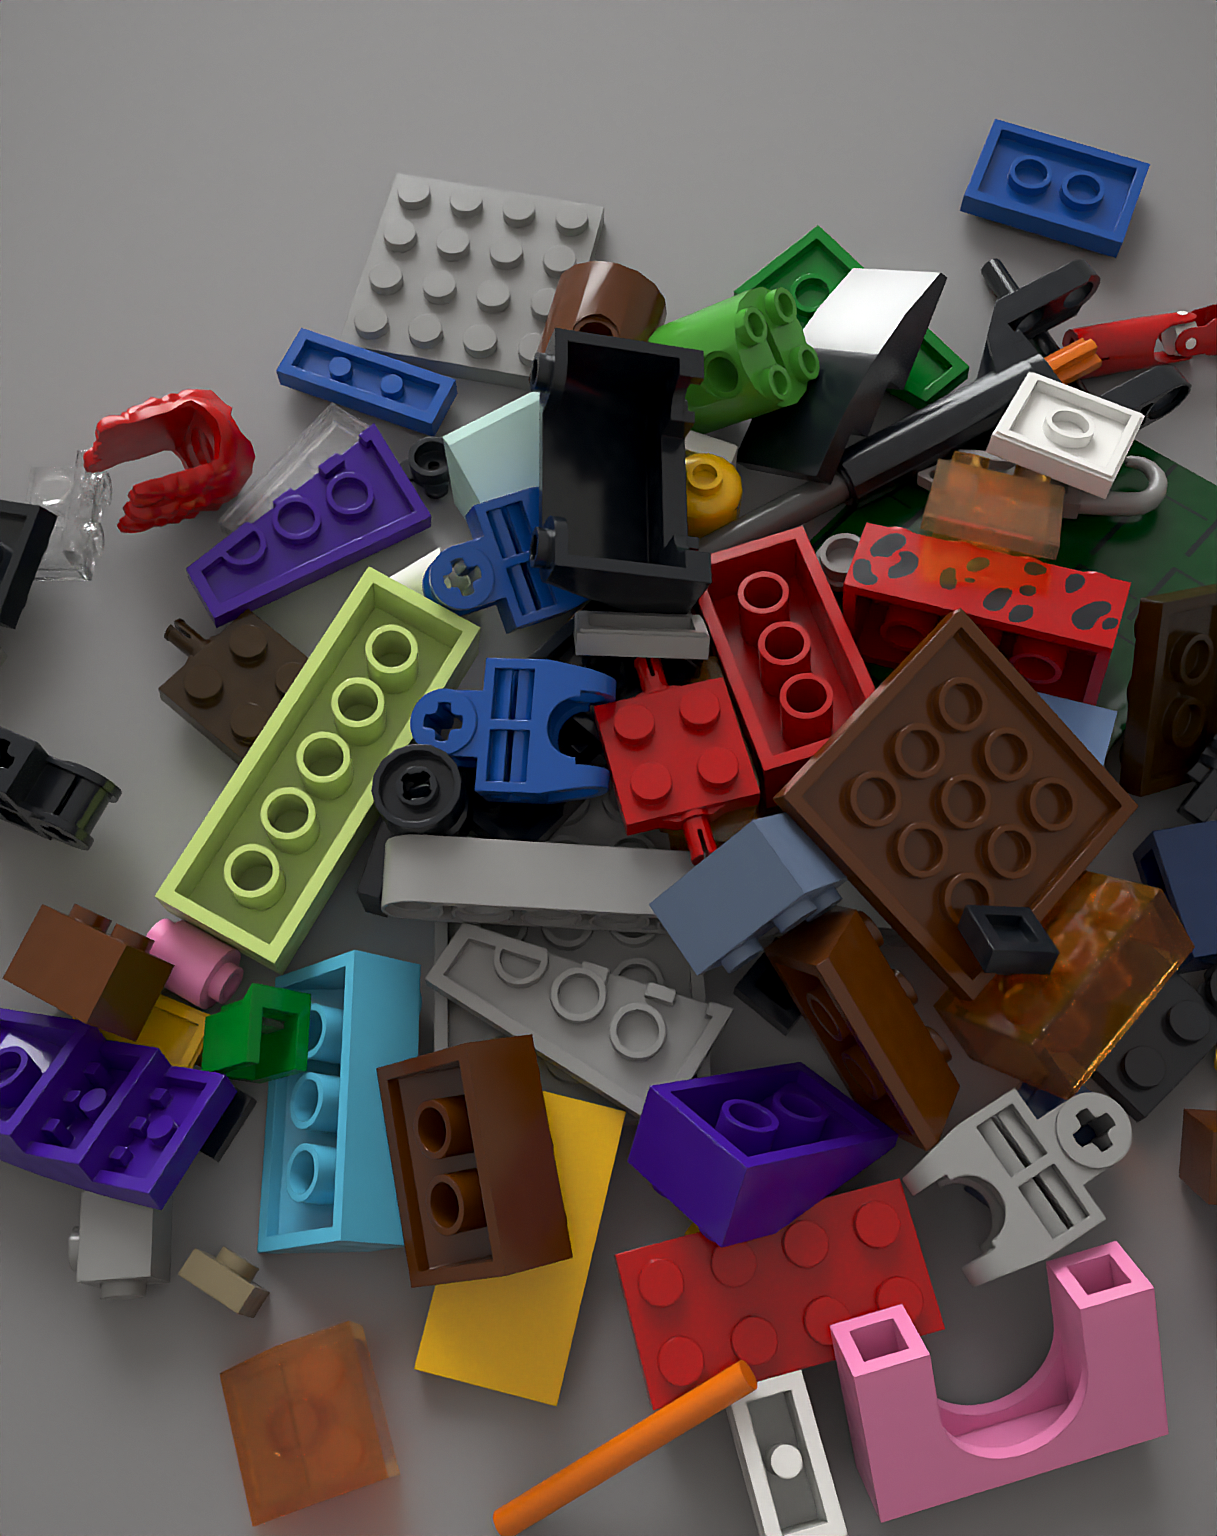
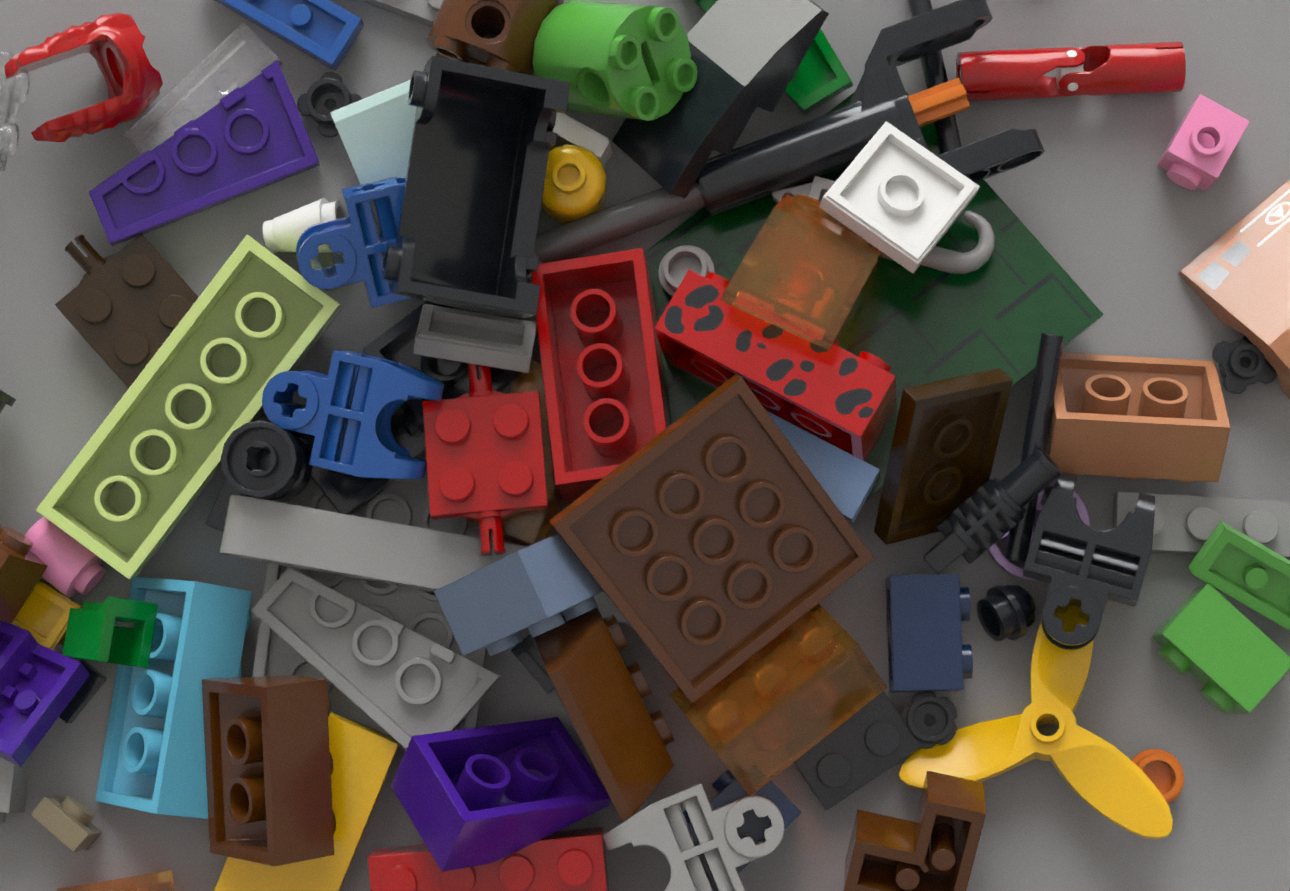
camera: 15 degrees right, 15 degrees up
(1007, 940) = (722, 665): black plate -> none

